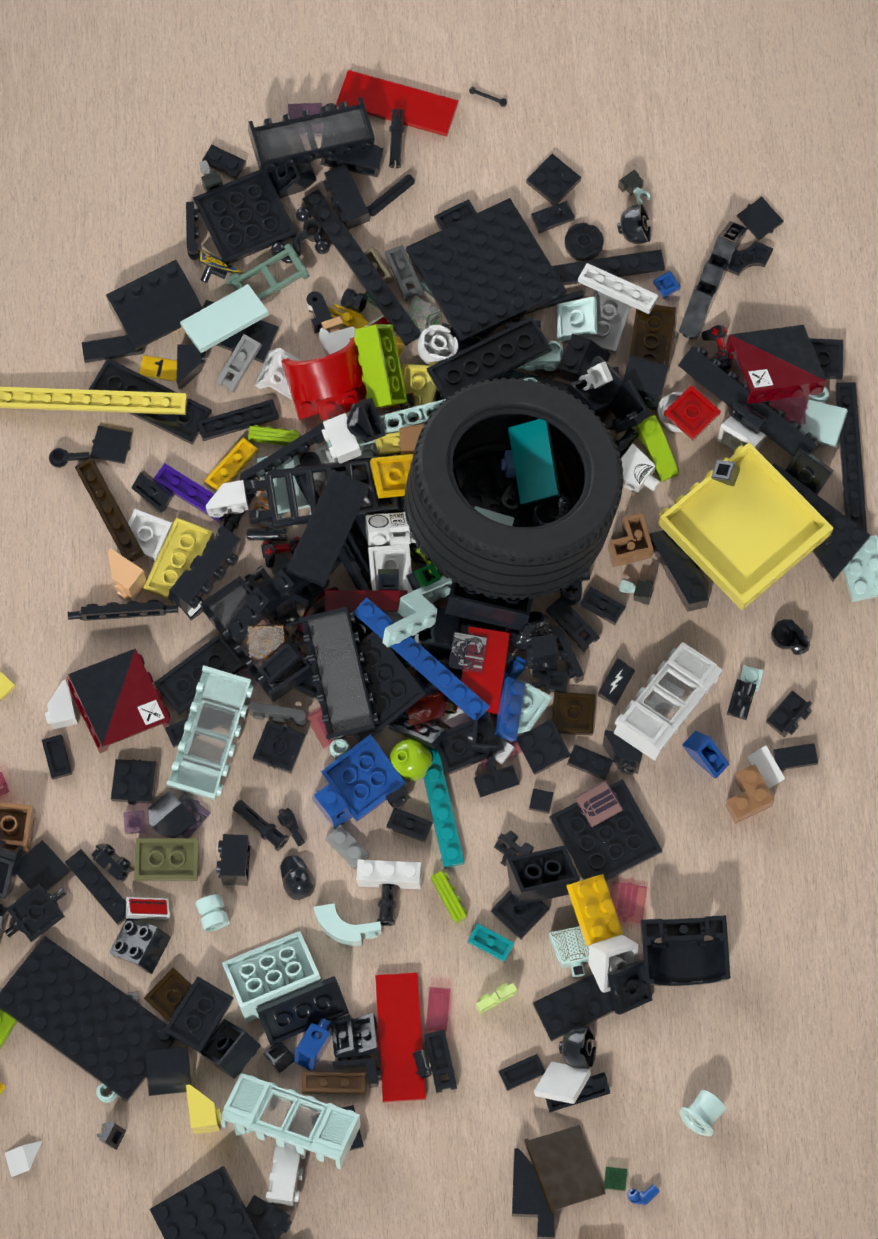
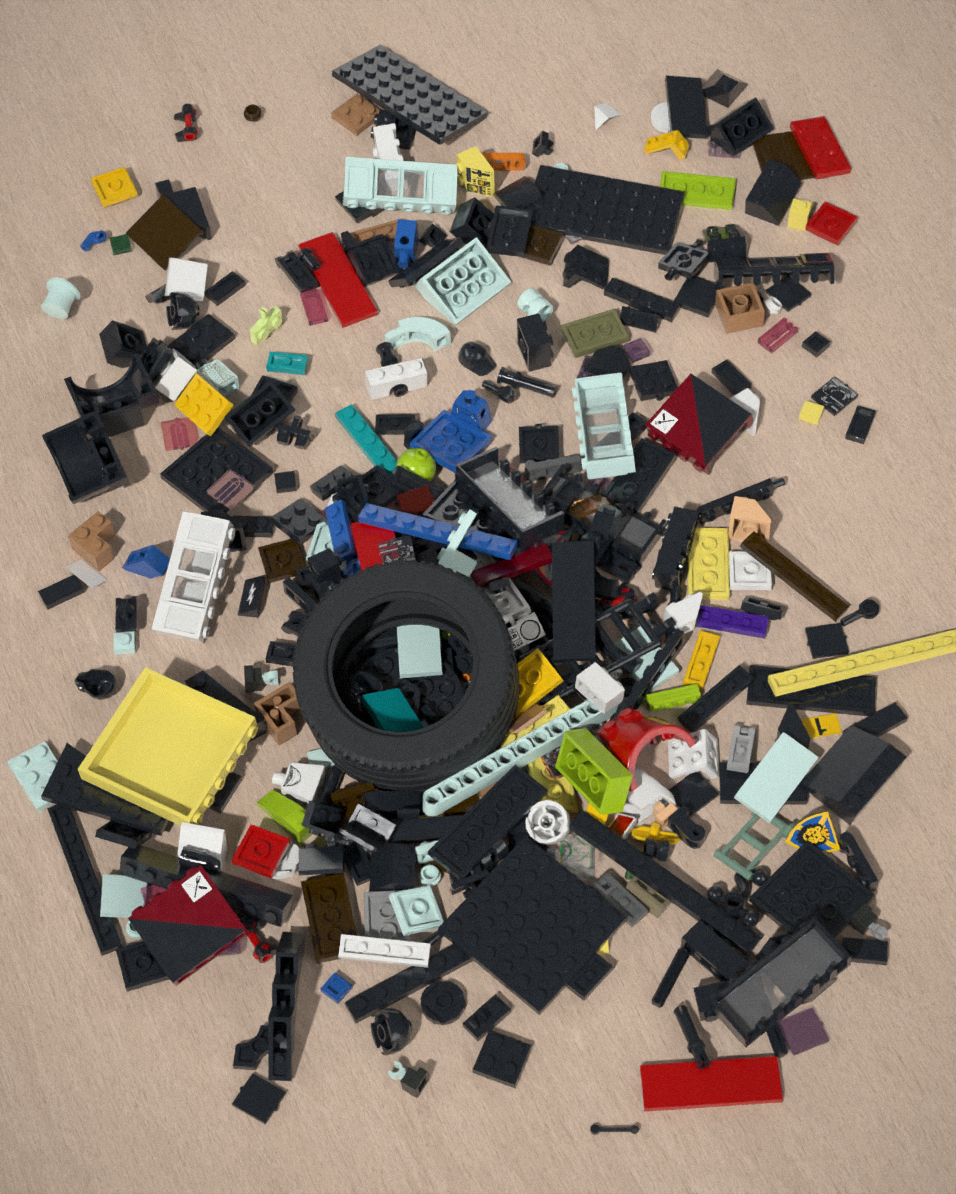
camera: 160 degrees right, 15 degrees down
(147, 908) = (591, 292): slope -> none
(167, 1129) = (508, 156): none -> orange beam
(299, 344) = (693, 792): none -> black piece
(346, 846) = (440, 393): light grey plate -> none
(365, 421) = (581, 701): black slope -> none
(448, 897) = (338, 385): lime piece -> none
(597, 376) = (367, 831): white plate -> none
(651, 1029) = (120, 342): none -> black slope
(726, 472) = (202, 779): slope -> none
(730, 873) = (85, 463): none -> black piece
(789, 713) = (76, 623): black bracket -> none

